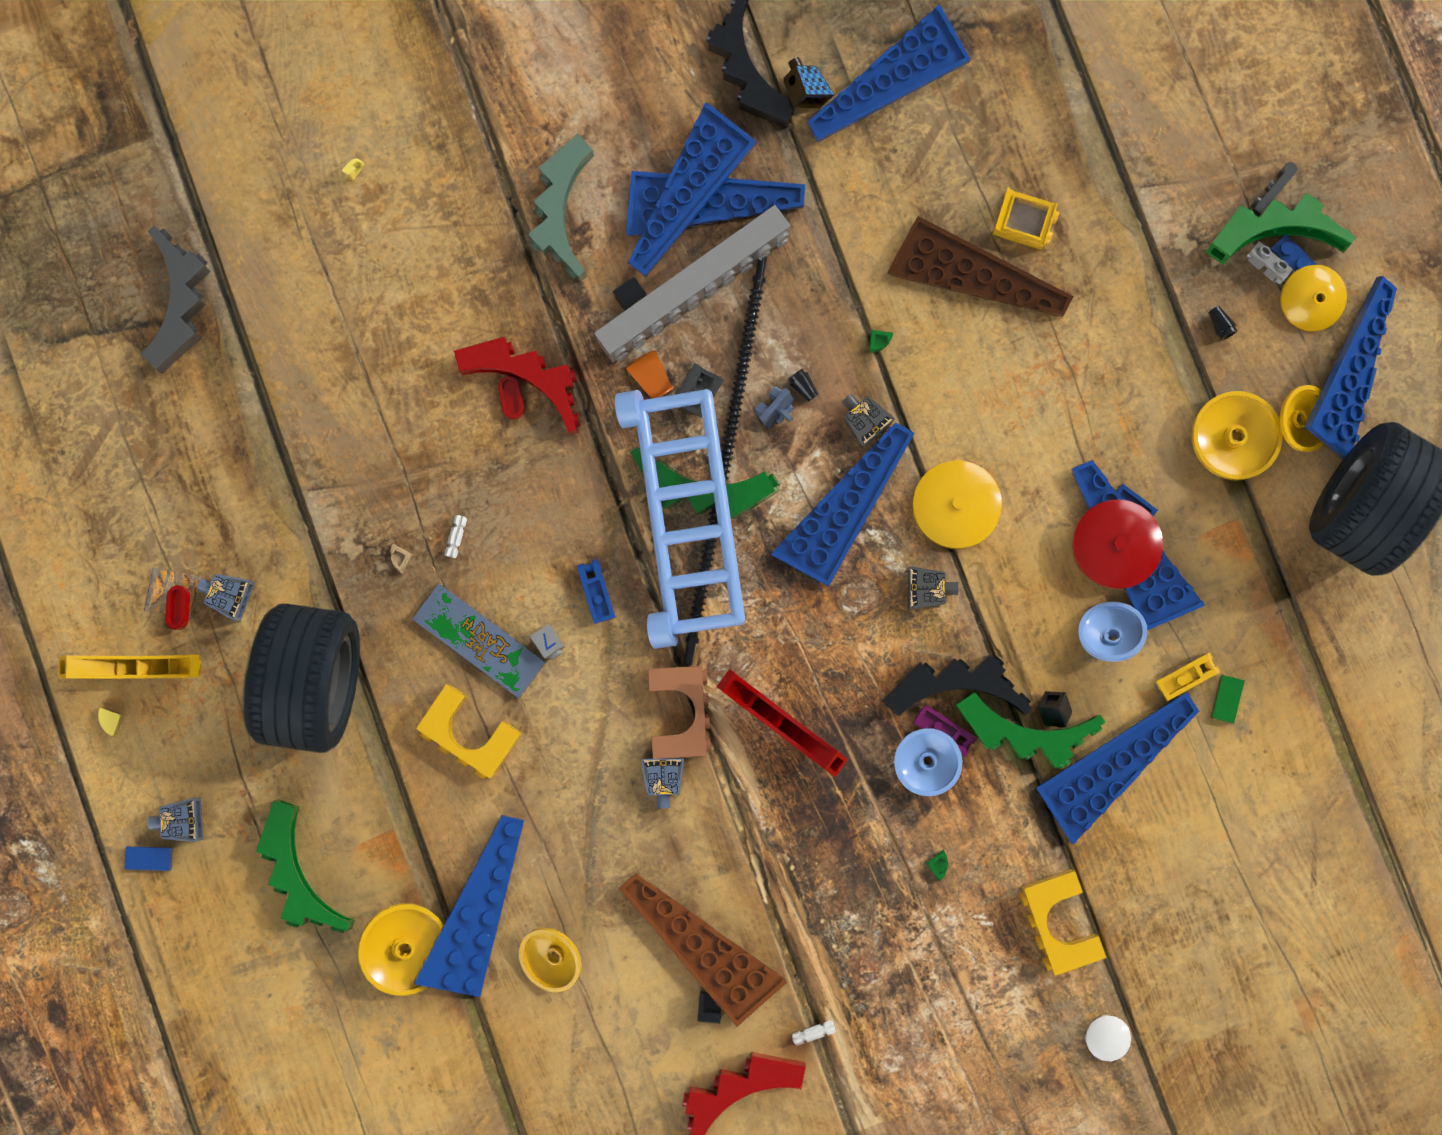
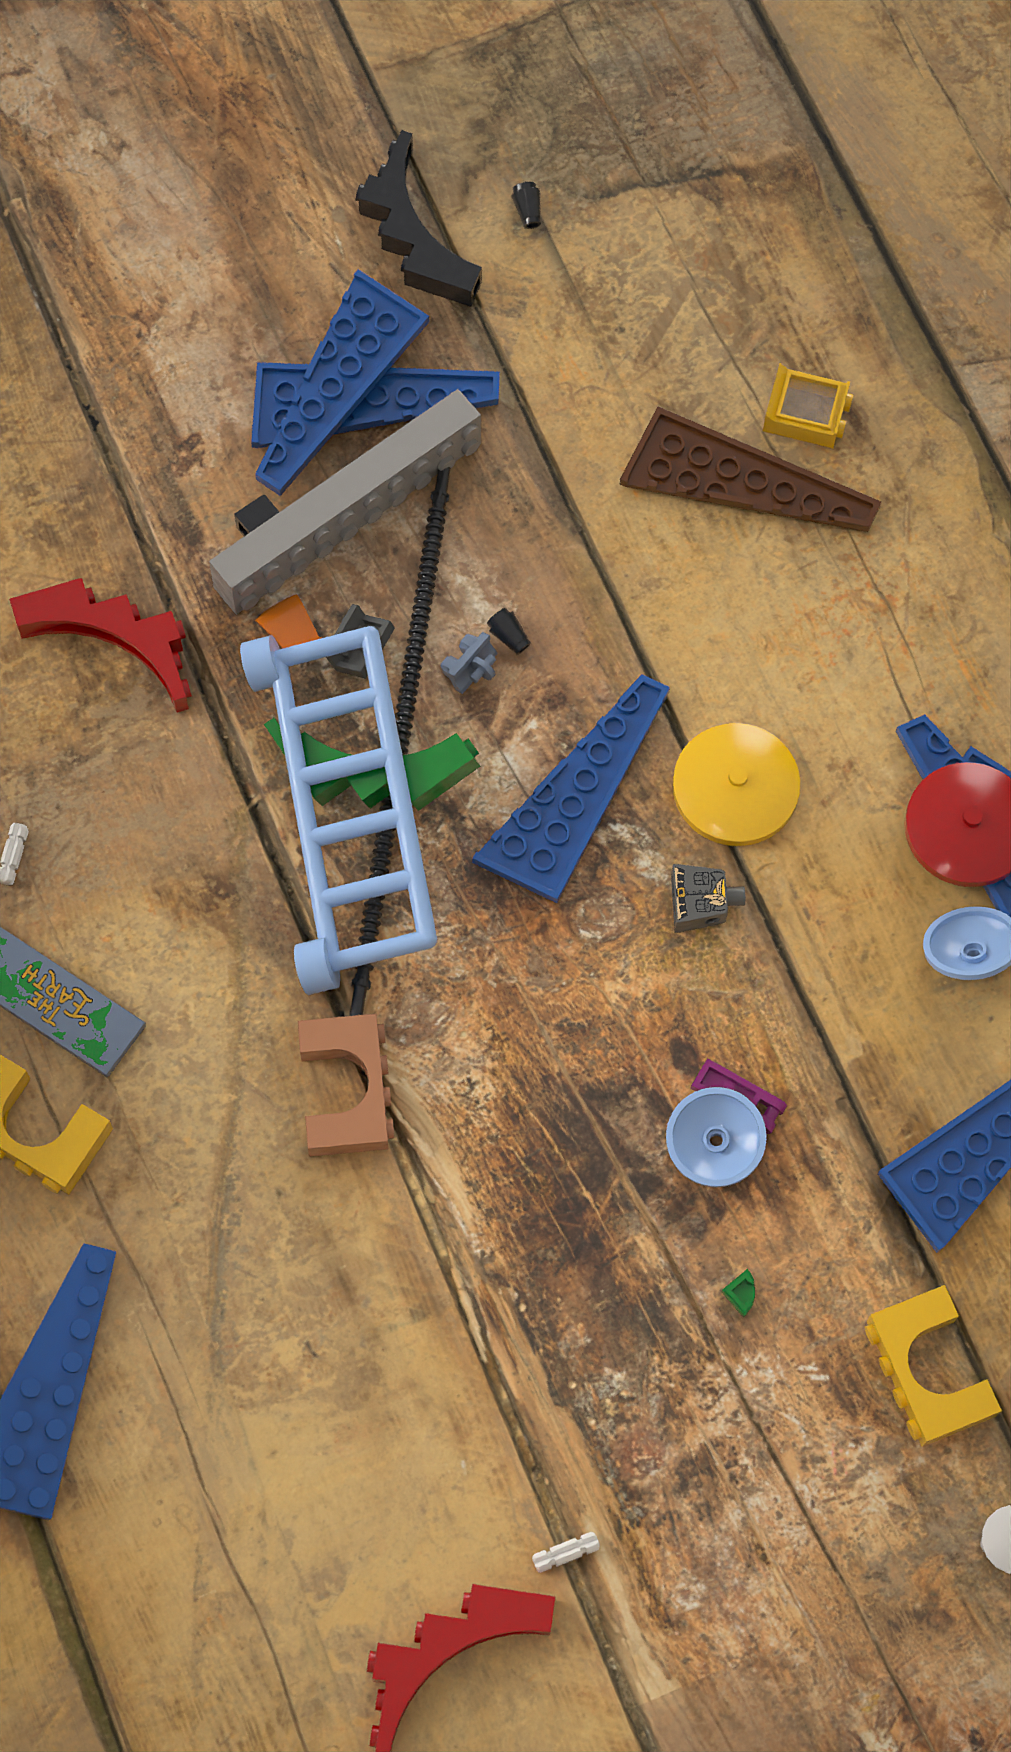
camera: 10 degrees left, 15 degrees down
(511, 397) = (91, 664): red tile -> none
(548, 642) = (149, 993): light grey brick -> none
(550, 959) = (142, 1454): yellow dish -> none
(560, 173) = (156, 373): sand green arch -> none
(596, 592) = (219, 923): blue plate -> none
(663, 778) = (324, 1179): torso -> none
(708, 1009) = (404, 1519): black panel -> none
(722, 967) = (421, 1457): dark orange wing -> none
(782, 723) = (493, 1088): red arch -> none
(806, 85) = (496, 248): dark brown torso -> none
(831, 49) = (527, 202): none -> black cone
(865, 419) = (599, 673): torso -> none
(879, 340) = (613, 571): green tile -> none
(913, 62) = (638, 219): blue wing -> none
(955, 675) = (749, 1018): black arch -> none
(1053, 744) = (854, 1103): green arch -> none
(1055, 709) = (898, 1058): black panel -> none

